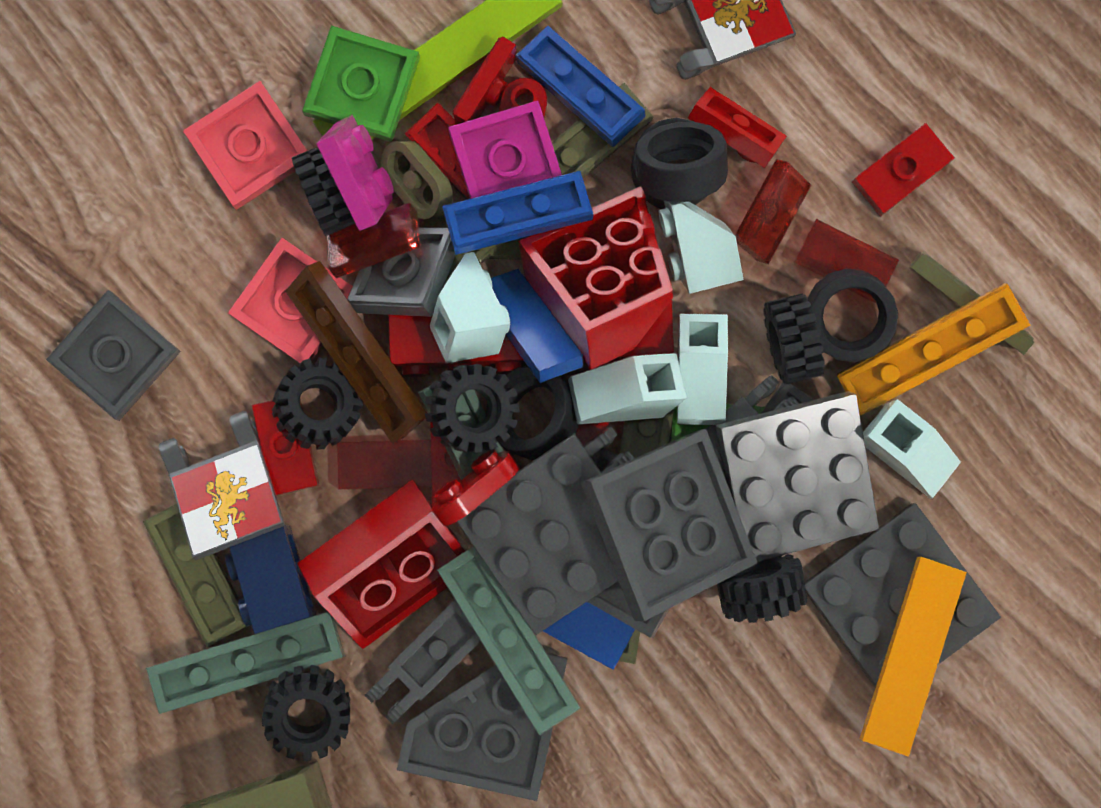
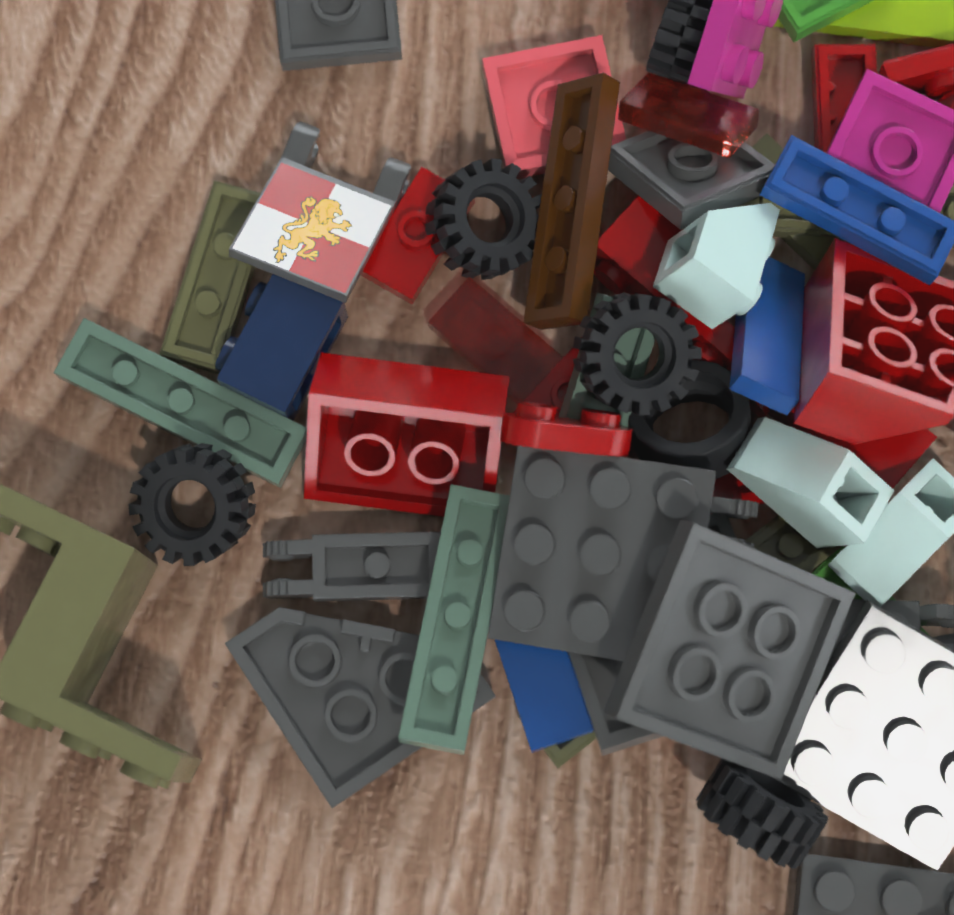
camera: 45 degrees right, 5 degrees down
(417, 178) = (786, 95): olive plate -> none

